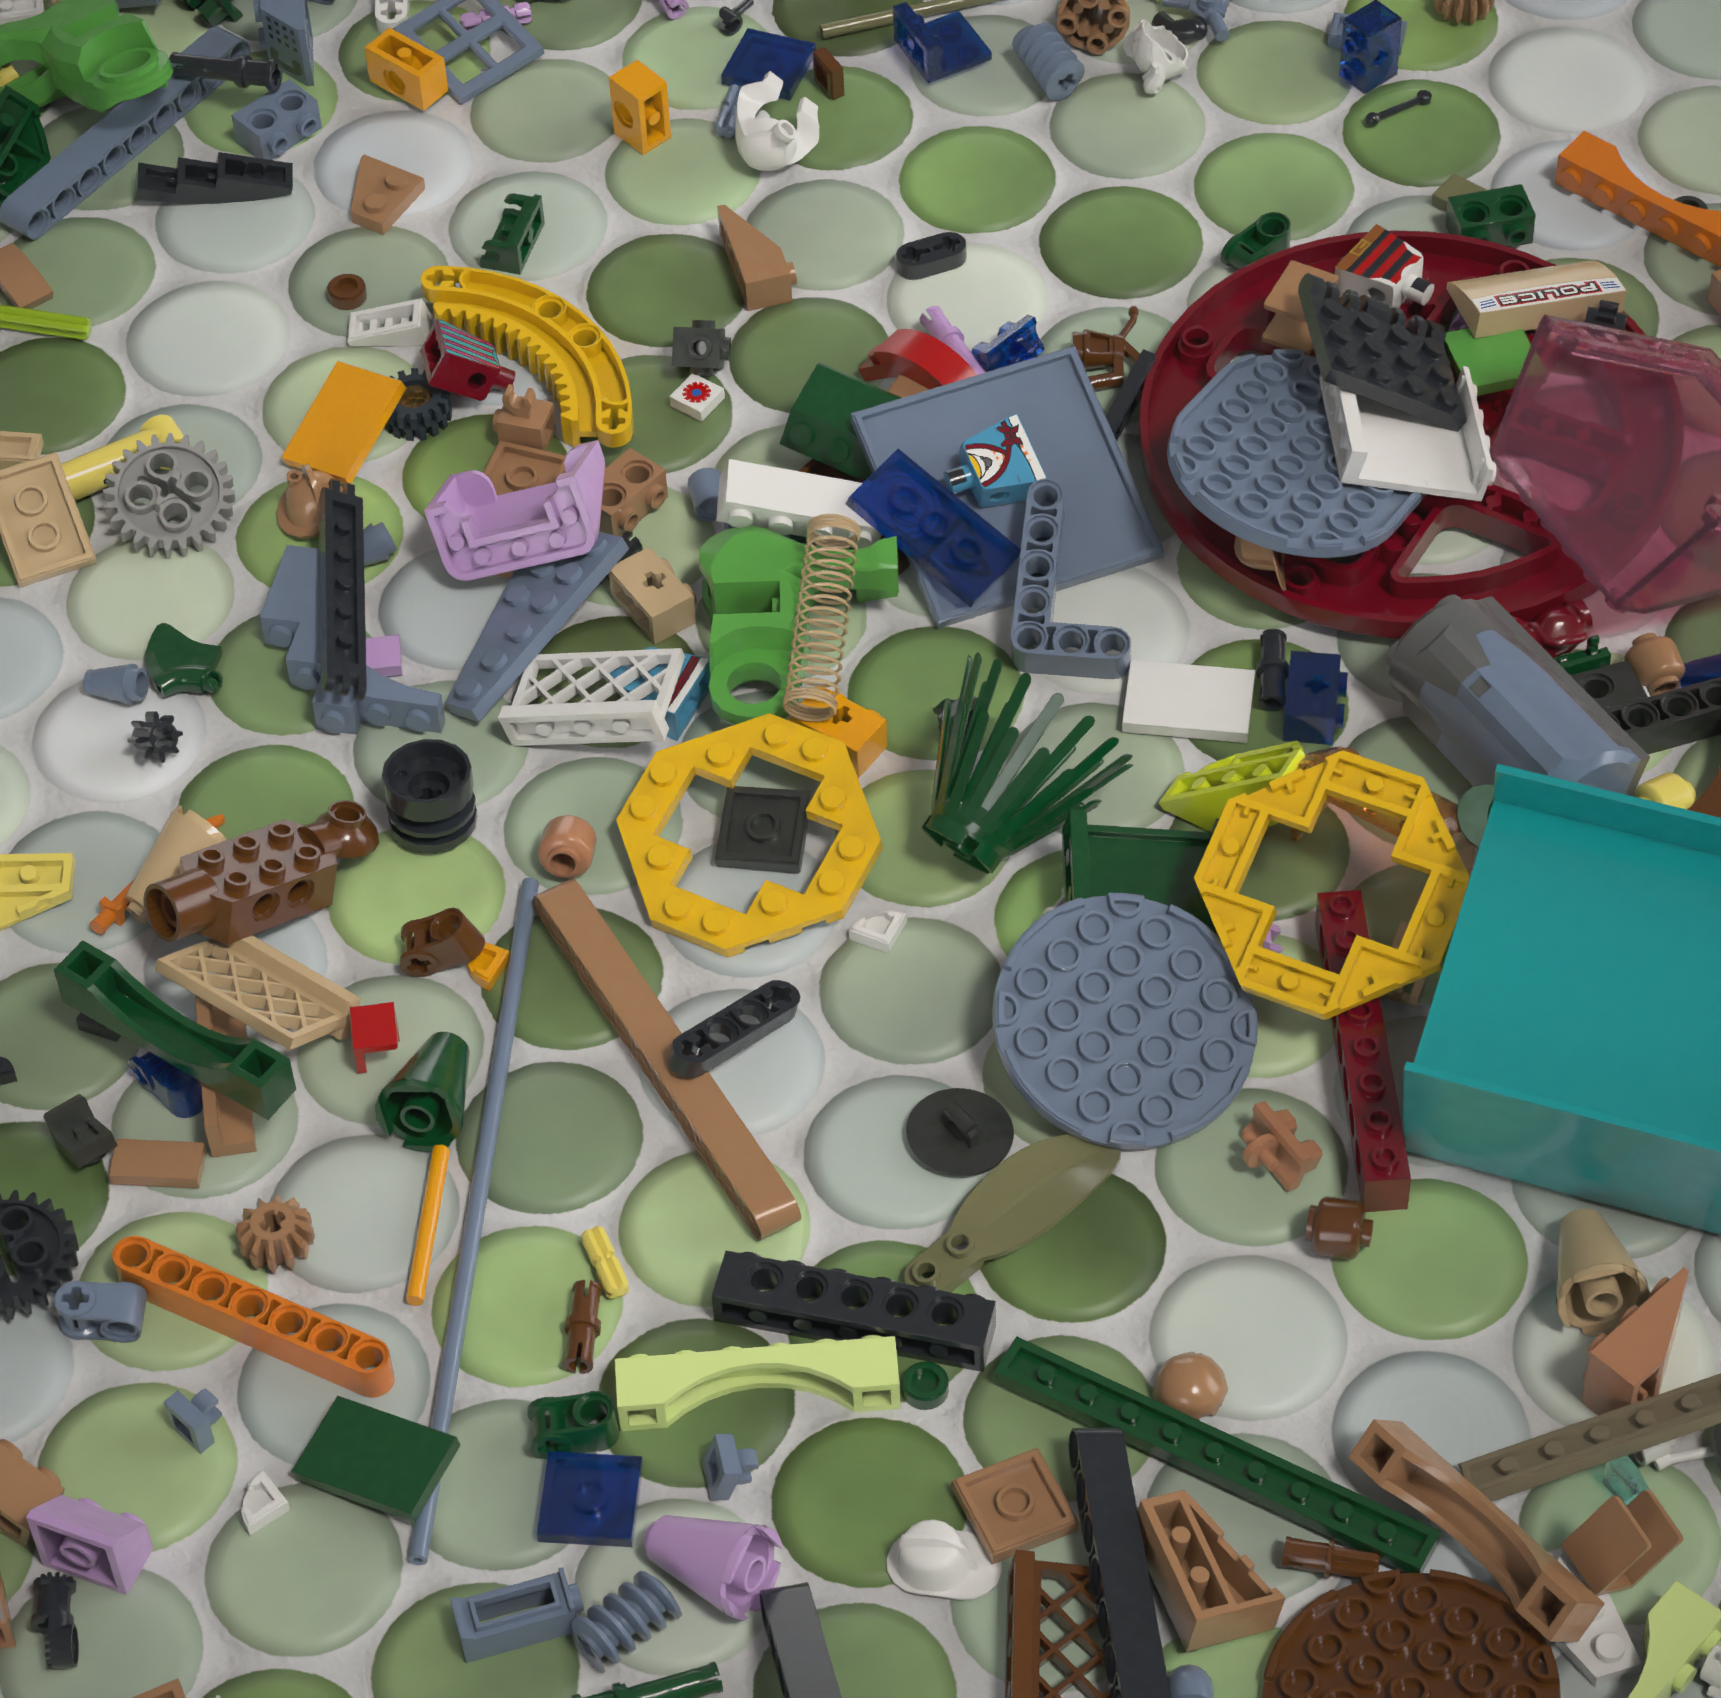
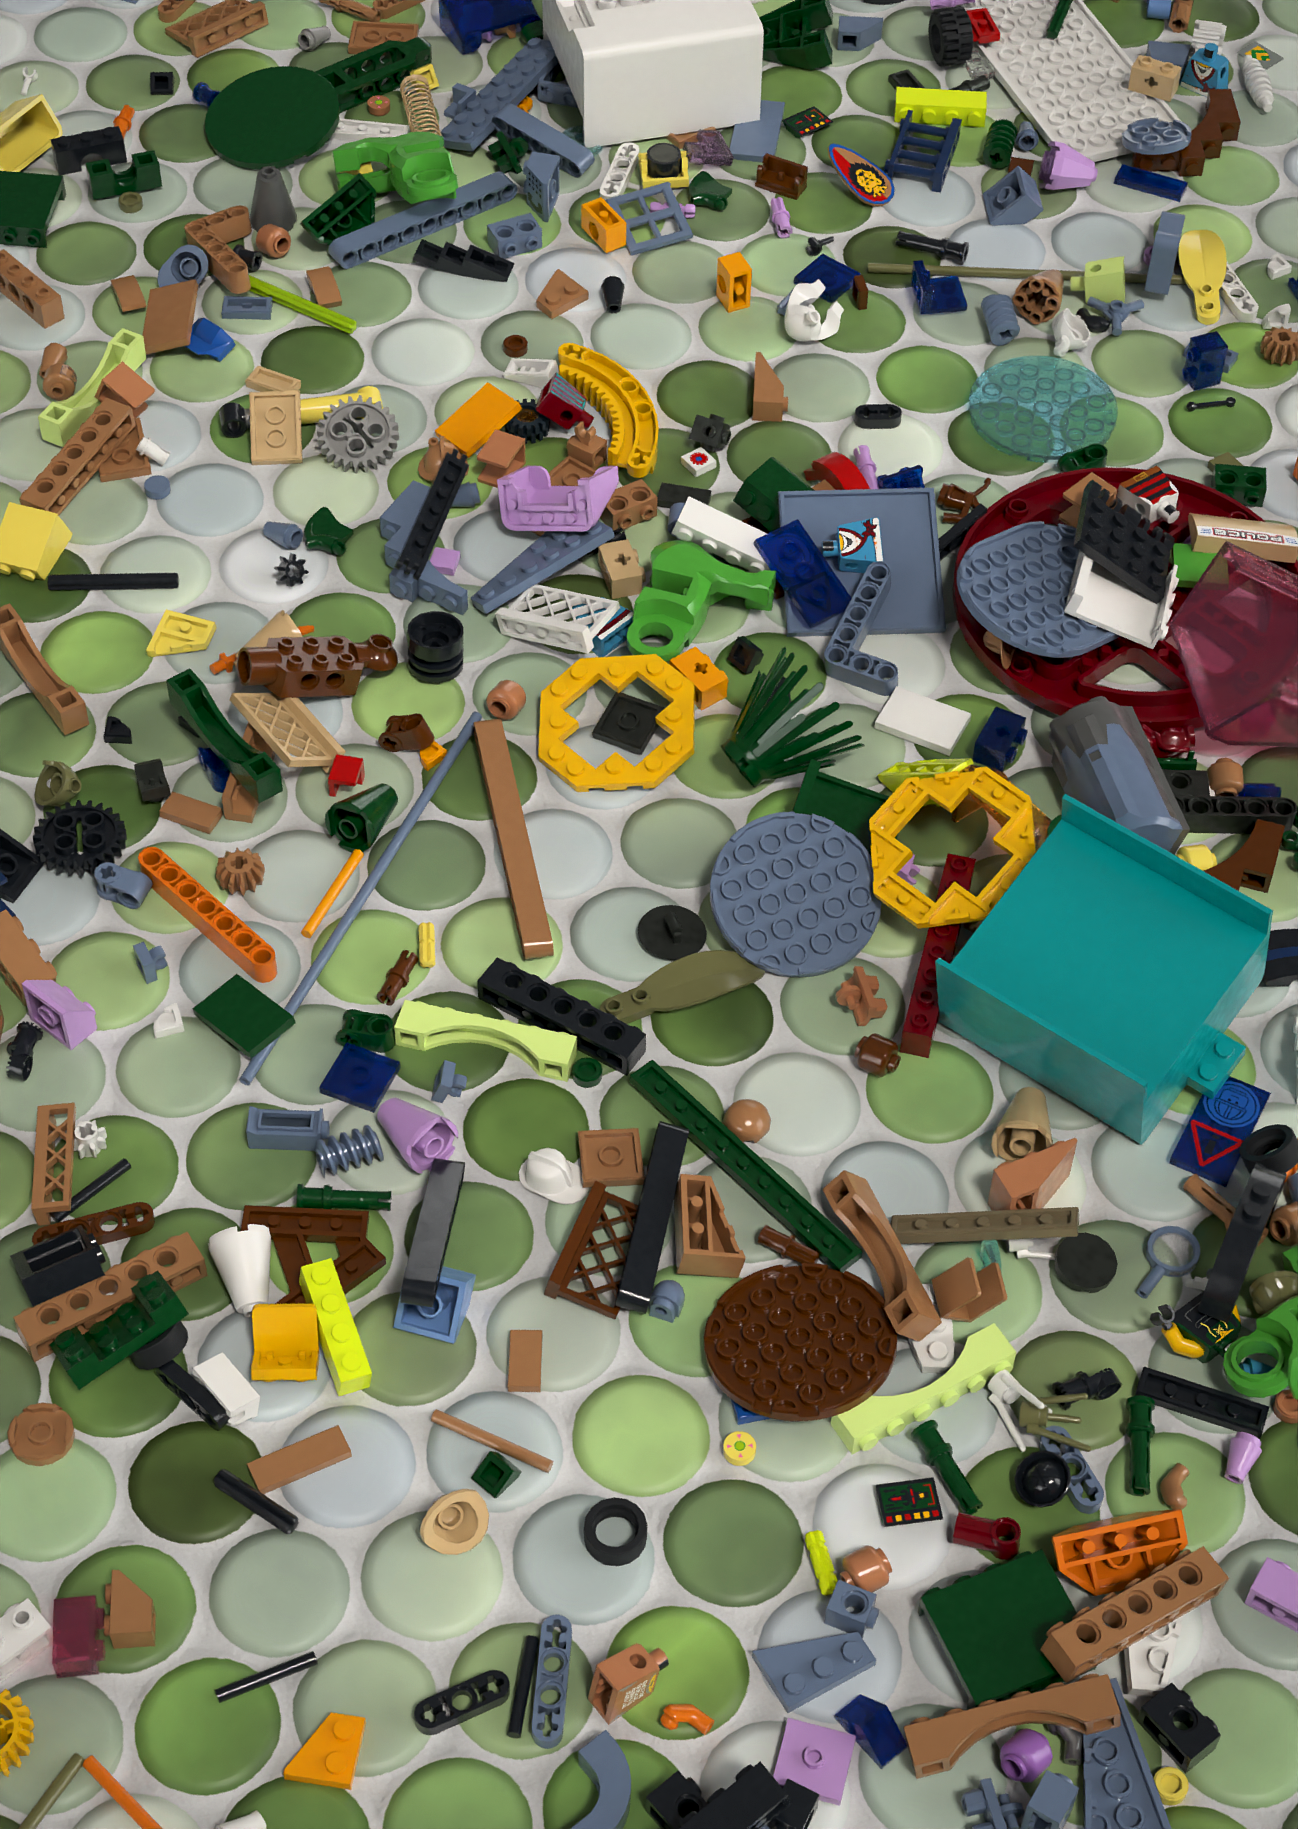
camera: 15 degrees right, 0 degrees up
(242, 70) = (502, 200): black pin -> none
(406, 473) = (503, 455): none -> nougat piece
(461, 170) = (612, 291): none -> black cone
(514, 235) = (630, 339): dark green hinge -> none
(686, 457) = (671, 494): none -> pearl dark grey tile
(727, 1022) = (529, 838): black beam -> none
(828, 543) = (730, 562): tan piece -> none
(879, 931) = (674, 802): white tile -> none
(891, 675) = (745, 655): none -> black tile
(1162, 178) = (1041, 407): none -> clear light blue tile
(1272, 669) = (981, 714): black pin -> none
(1606, 315) = (1281, 558): black gear -> none

